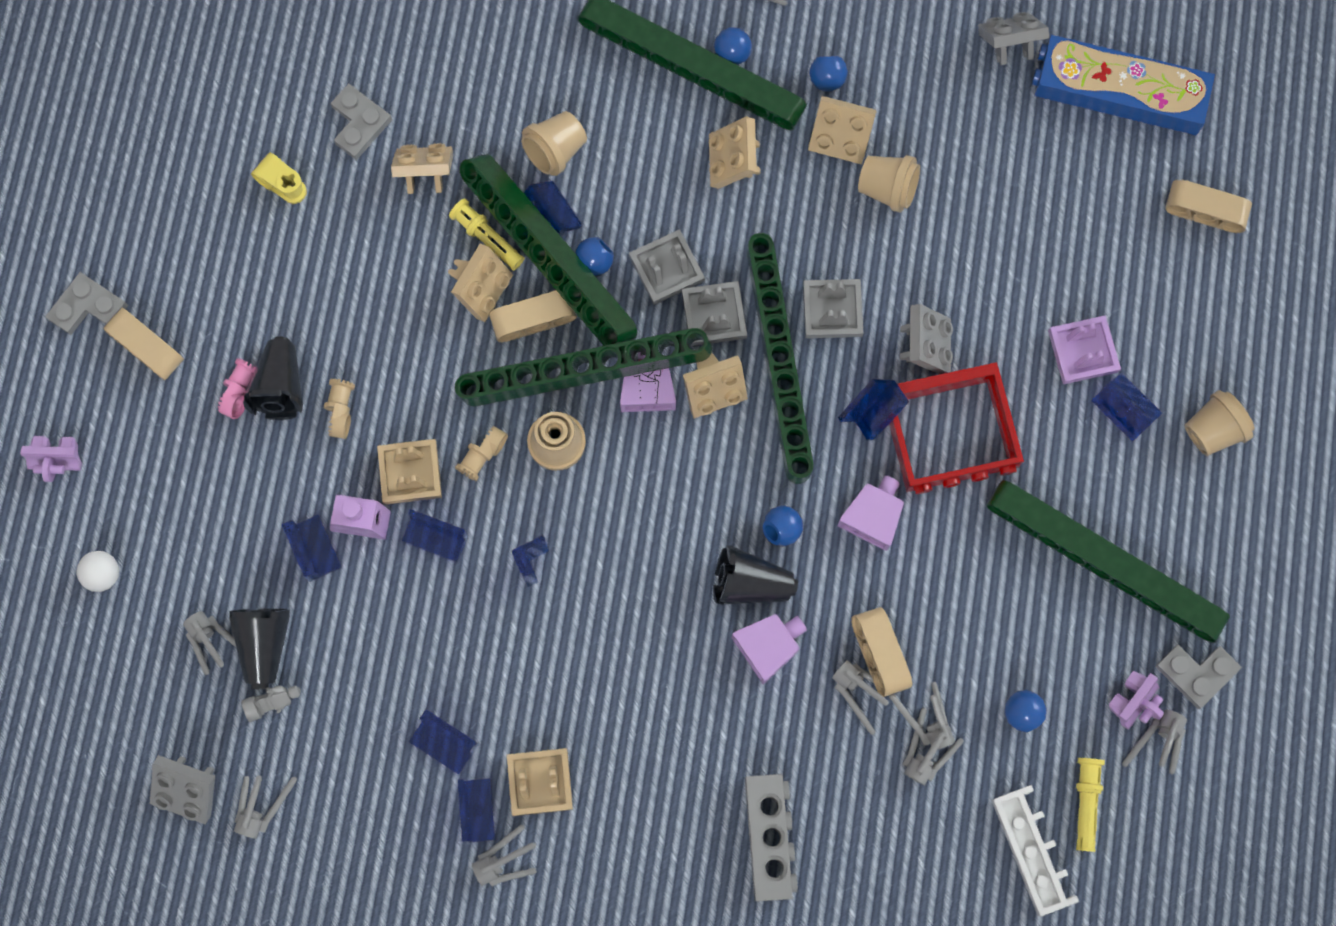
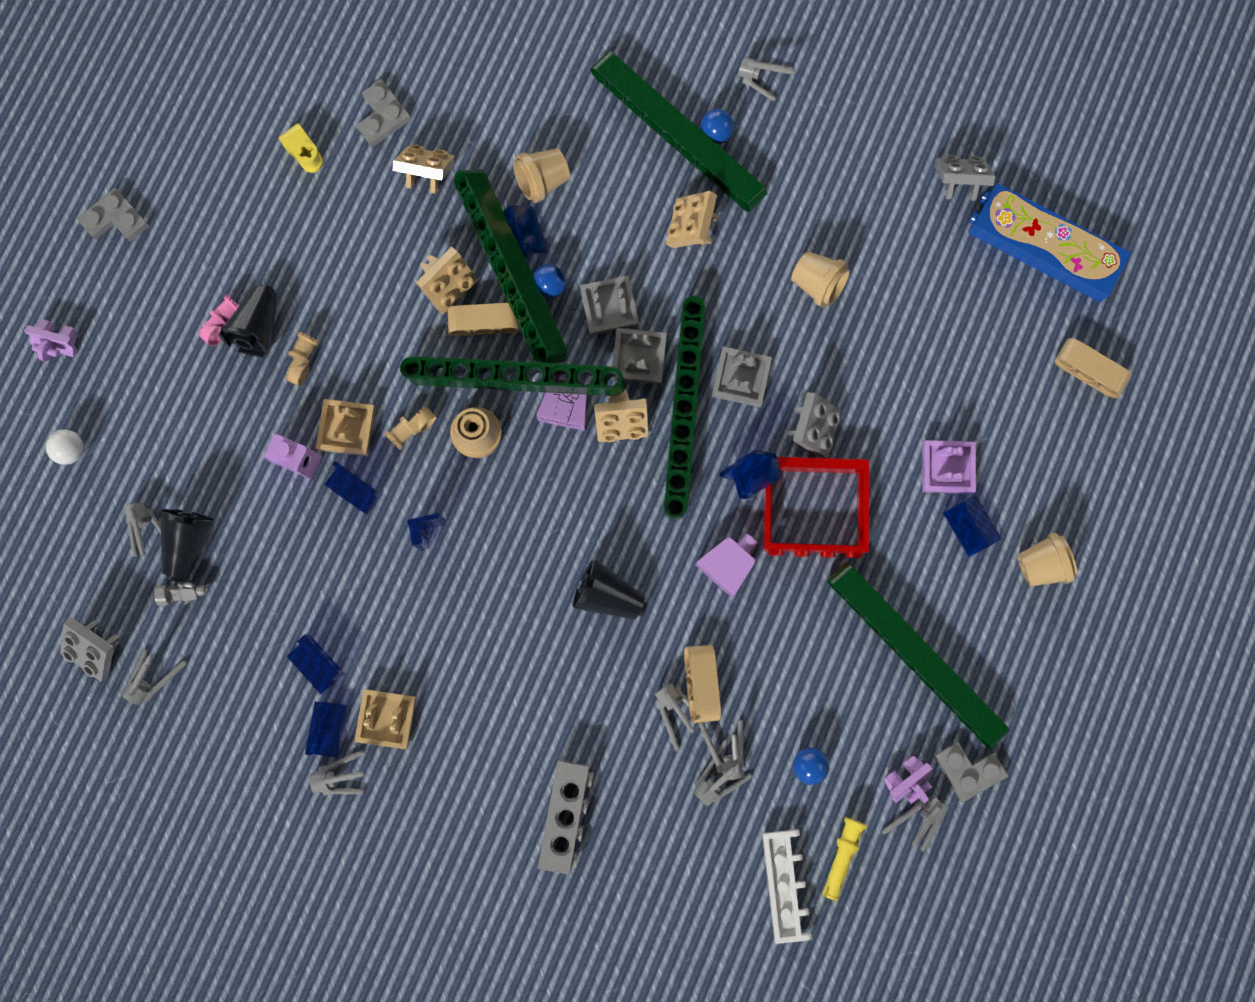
camera: 15 degrees right, 5 degrees up
(143, 343) = (151, 262): tan beam -> none
(312, 547) = (247, 471): clear blue panel -> none
(479, 223) = (458, 228): light yellow pin -> none
(769, 644) = (609, 652): lavender torso -> none
(782, 526) = (647, 554): blue piece -> none
(828, 73) = (793, 169): blue piece -> none
(842, 130) = (791, 222): tan plate -> none

